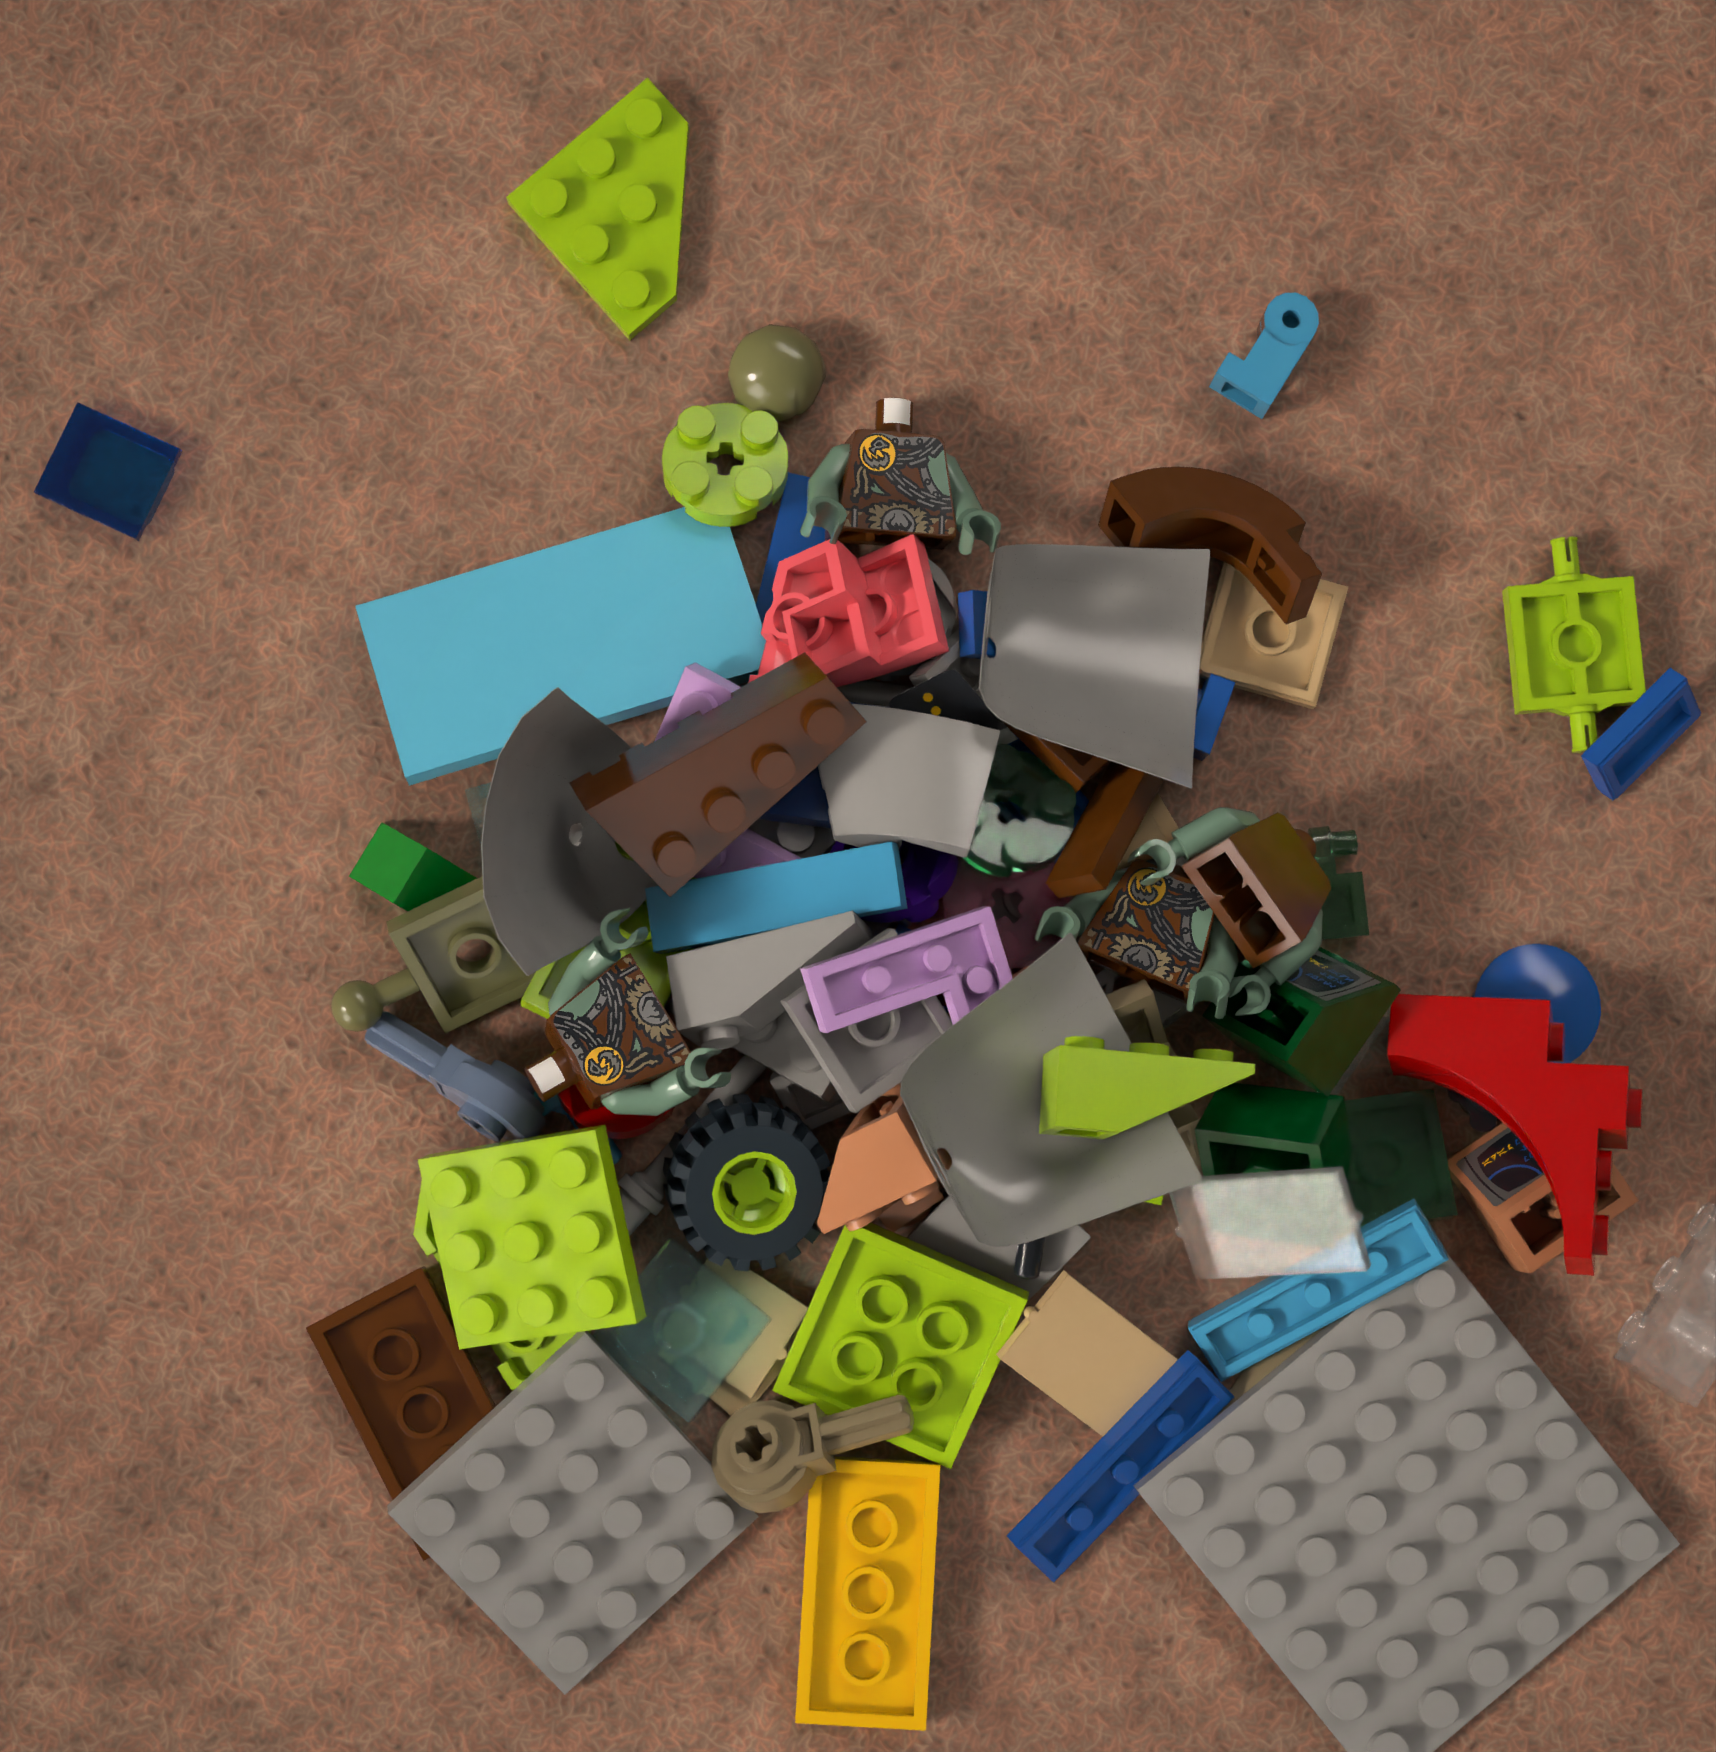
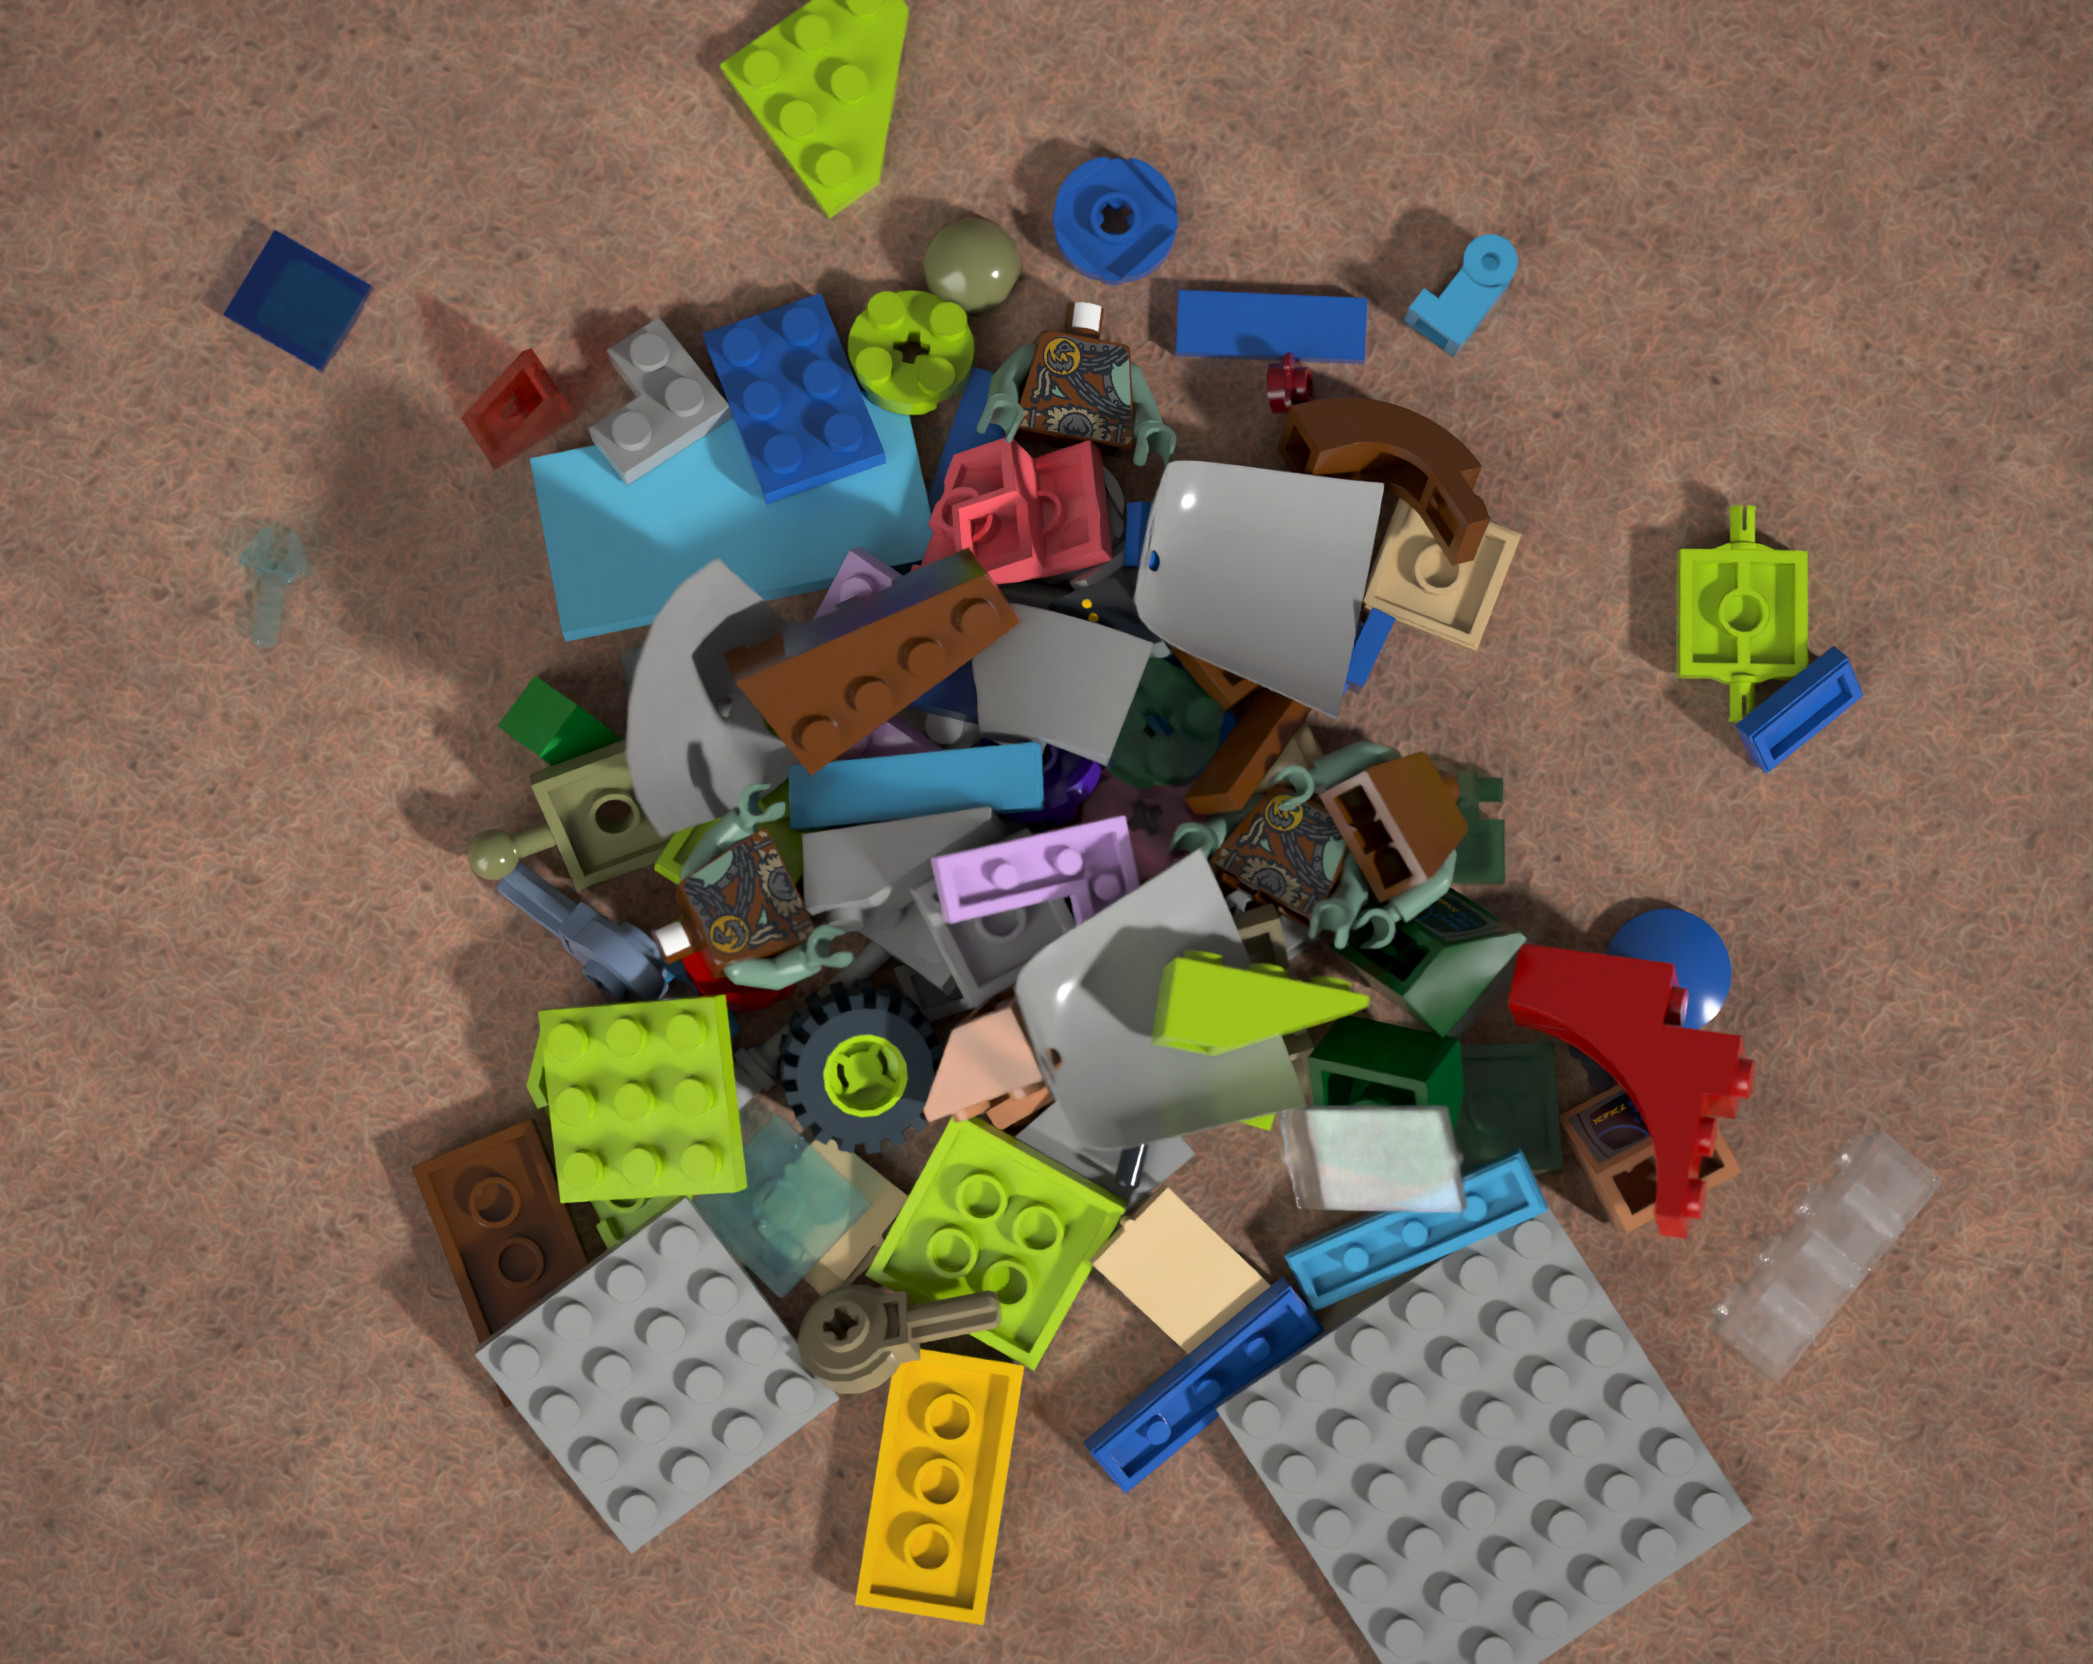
camera: 15 degrees right, 0 degrees up
(110, 754) = (273, 581): none -> clear light blue bar
(338, 559) = (517, 410): none -> clear red slope
(491, 542) = (671, 405): none -> light grey plate
(613, 521) = (794, 398): none -> blue plate
(913, 279) = (1116, 184): none -> blue plate
(1079, 405) = (1270, 325): none -> blue tile
(1103, 461) = (1288, 384): none -> dark red plate

